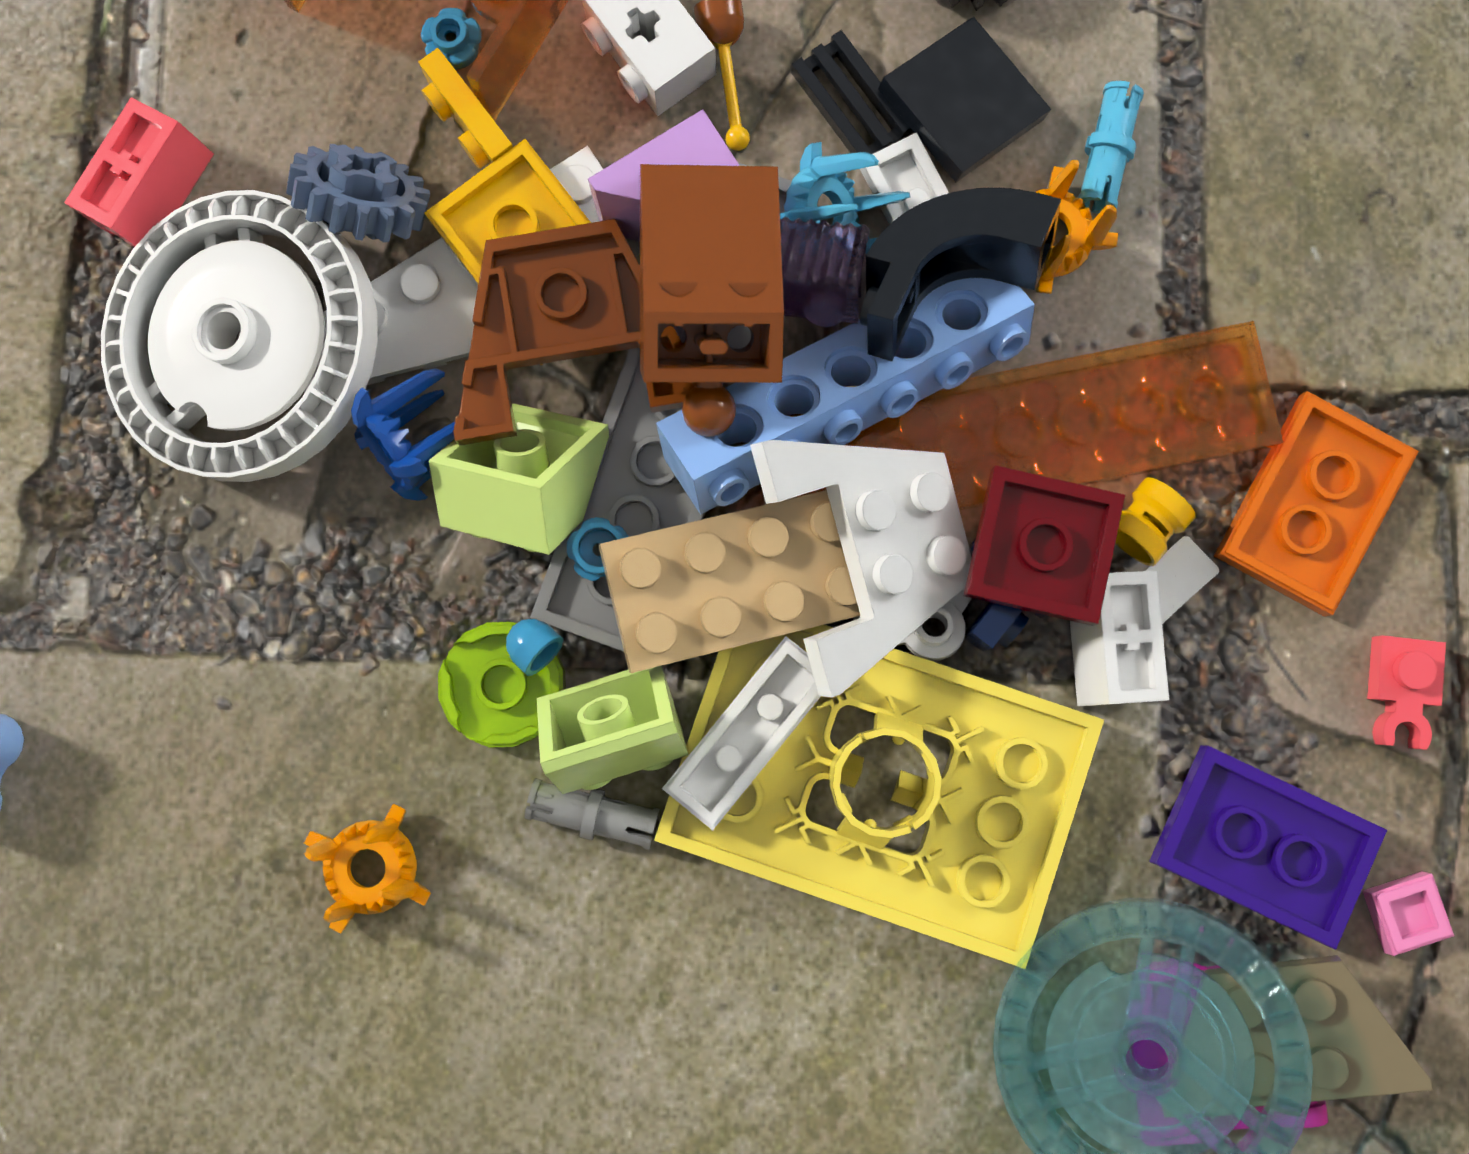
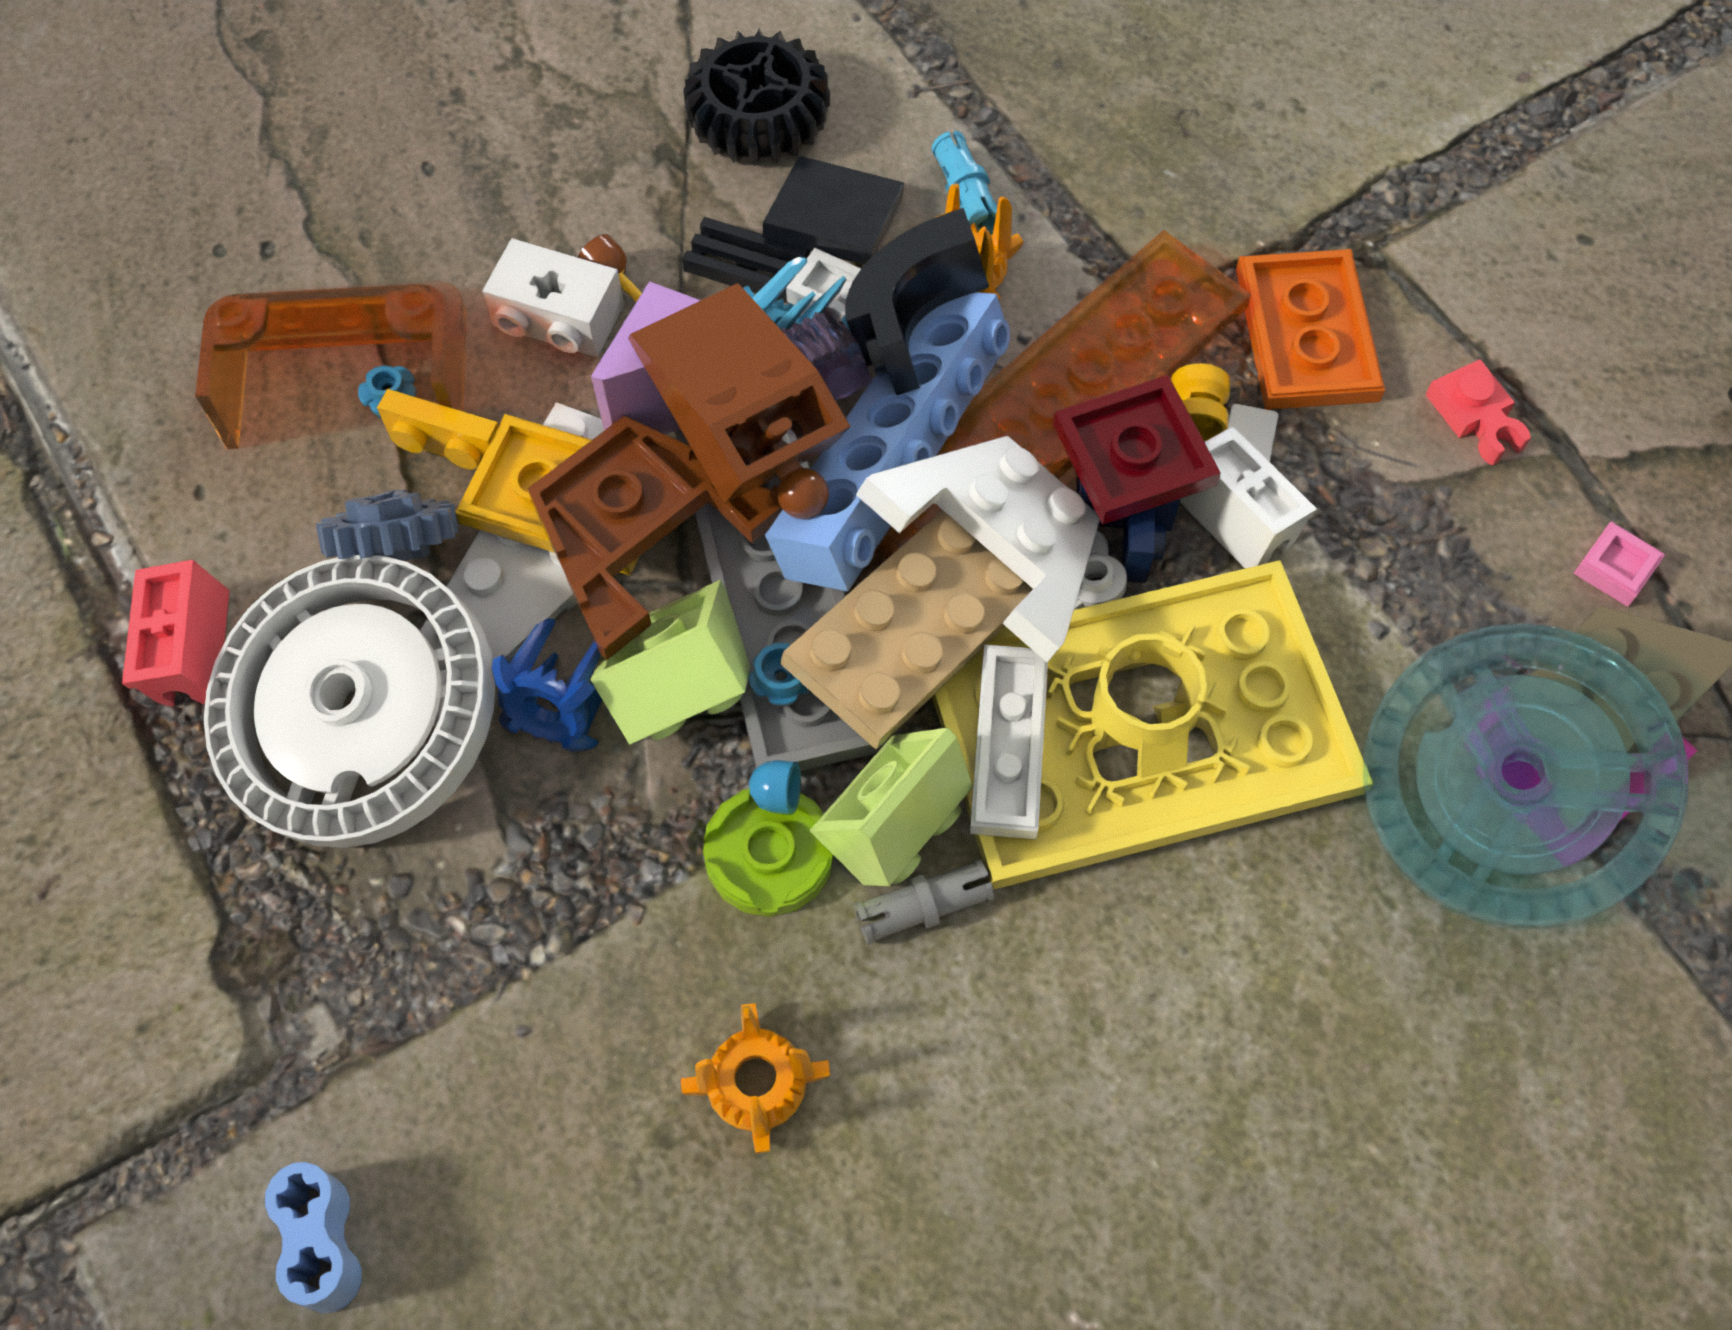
camera: 35 degrees left, 20 degrees down
(1268, 846) = (1476, 575): dark purple plate -> none

